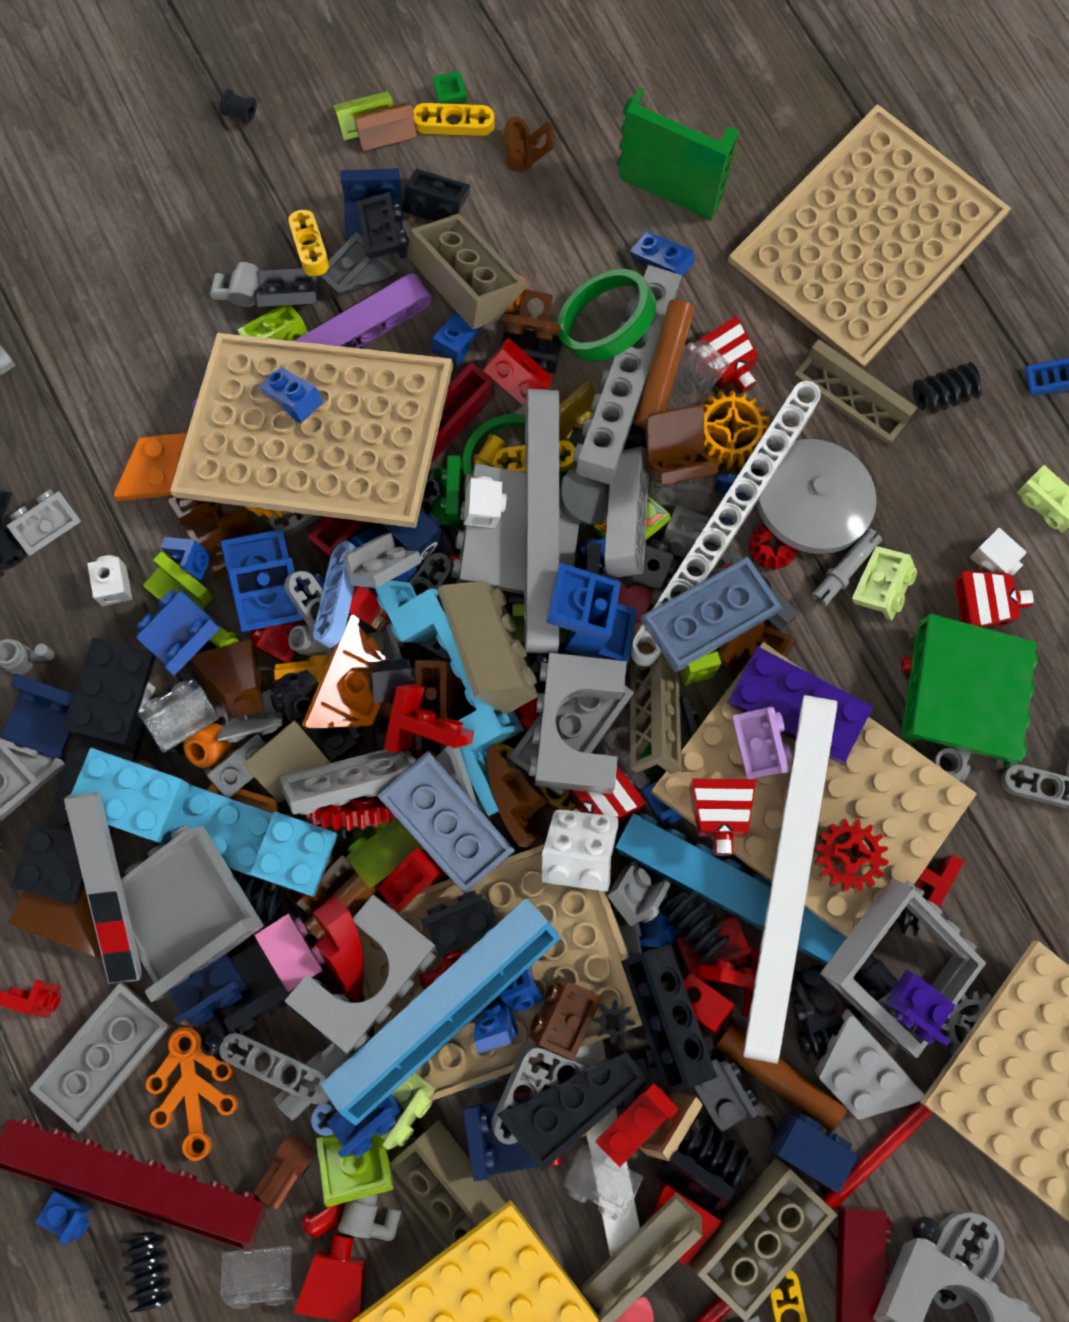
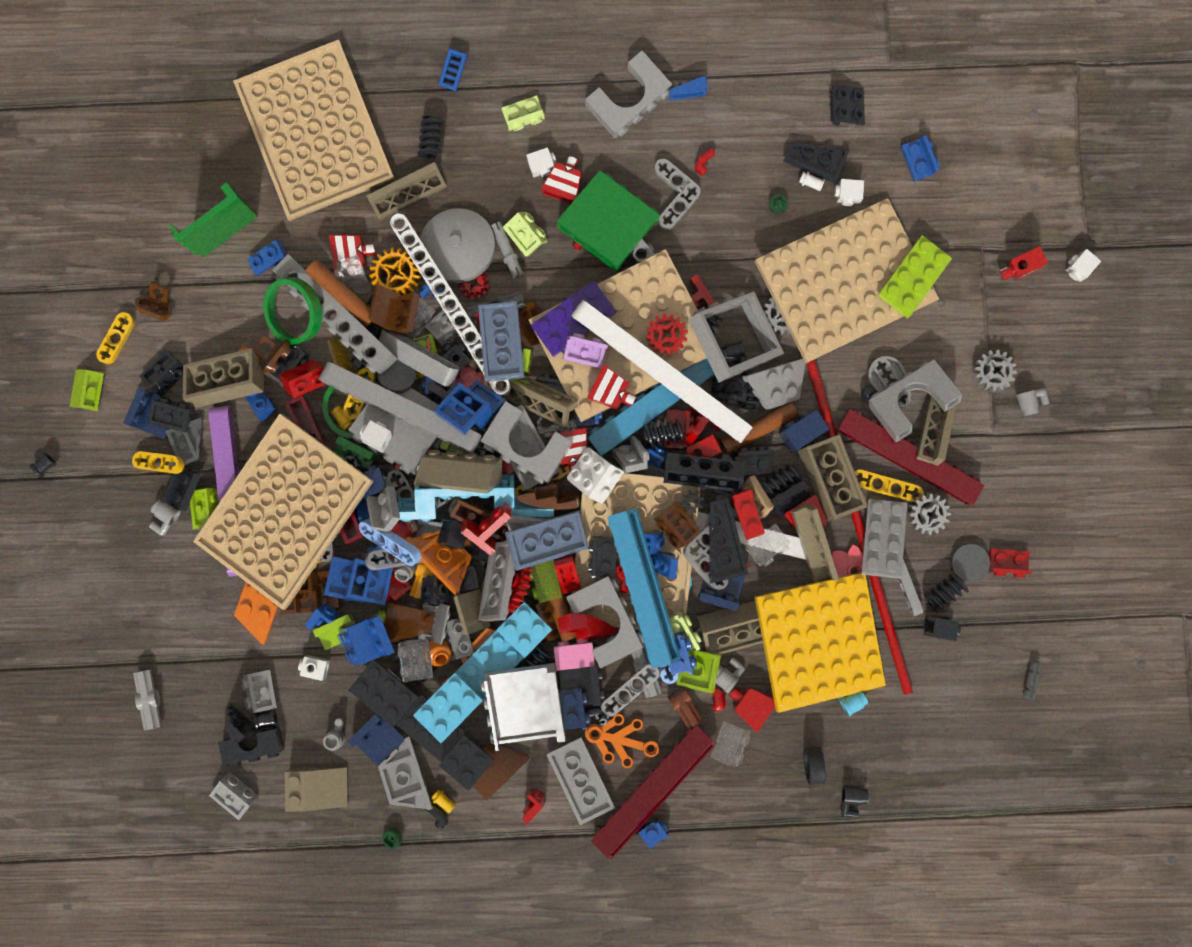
camera: 65 degrees left, 10 degrees up
(103, 887) = (492, 740): light grey tile -> none
(147, 1270) = (701, 799): black piece -> none
(292, 393) = (257, 514): blue plate -> none
(385, 126) = (101, 381): dark orange panel -> none
(450, 88) = (94, 331): green plate -> none
(920, 1006) = (759, 338): dark purple bracket -> none

